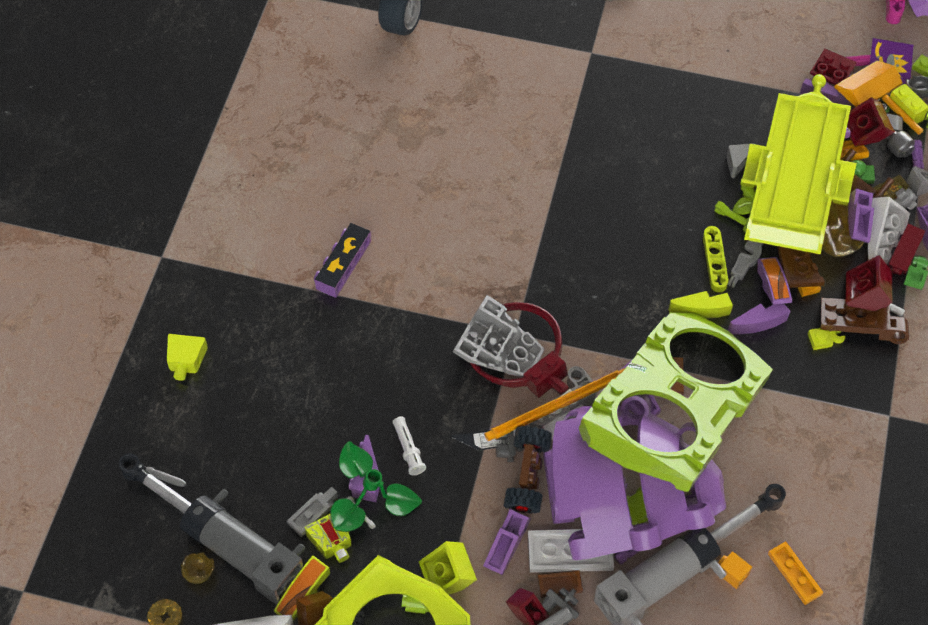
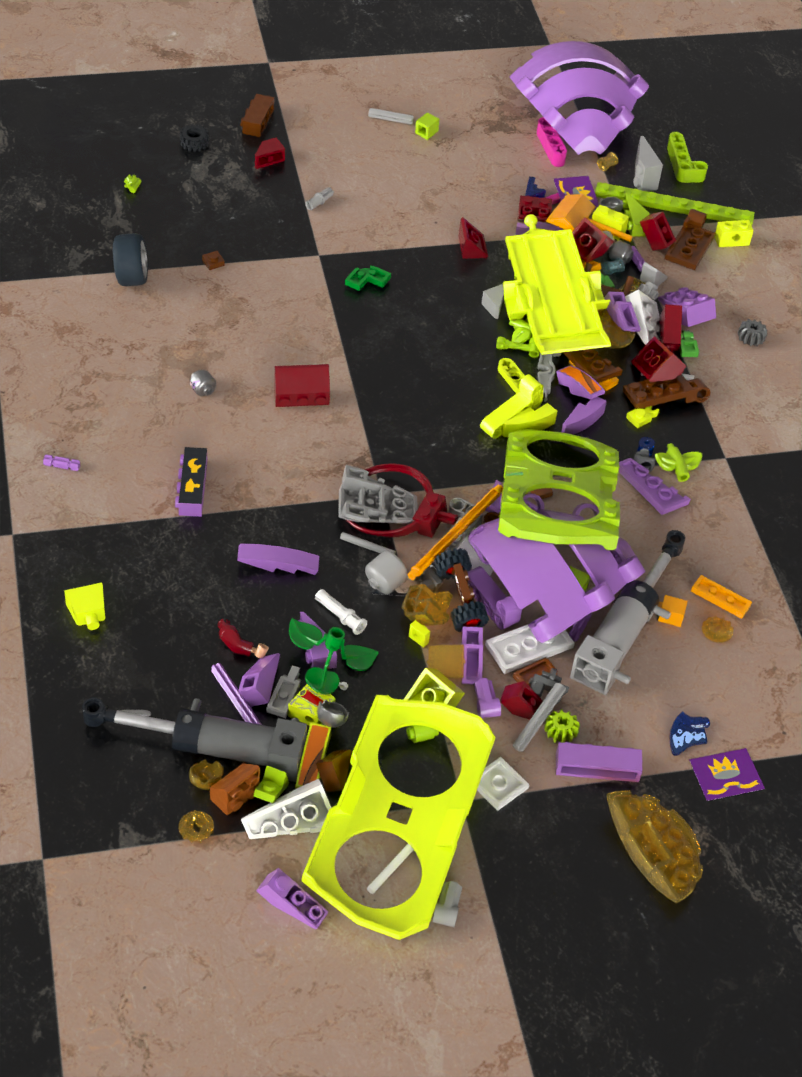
camera: 30 degrees left, 10 degrees down
(215, 593) = (235, 788): none -> dark orange slope
(239, 199) = (61, 462): none -> medium lavender axle
(246, 605) = (272, 785): none -> lime slope
(268, 500) = (232, 692): none -> axle
(293, 441) = (233, 640): none -> dark red arm
(293, 490) = (259, 680): none -> medium lavender slope
(335, 554) = (332, 714): none -> flat silver hair
(378, 368) = (273, 557): none -> medium lavender slope
(406, 158) = (202, 383): none -> flat silver head
(469, 422) = (386, 572): none -> light grey head
(469, 497) = (419, 633): none -> neon yellow plate
(472, 384) = (364, 543): none -> light grey bar
(478, 538) = (447, 660): none -> clear yellow piece
(485, 28) = (213, 260): none -> reddish brown plate
(487, 473) = (426, 606): none -> clear yellow brick
(494, 193) = (301, 385): none -> dark red slope
(495, 598) = (487, 702): none -> medium lavender piece
(630, 91) = (360, 277): none -> green plate
(710, 280) = (529, 395): none -> neon yellow beam
(751, 84) = (471, 241): none -> dark red slope
(772, 616) = (723, 635): none -> clear yellow gear
(789, 424) = (651, 487): none -> medium lavender wing
(805, 379) = (645, 451): none -> leg
(833, 403) = (676, 461): none -> lime plant
(843, 45) = (532, 189): none -> clear blue slope
(885, 158) = (613, 266): none -> clear light blue bush

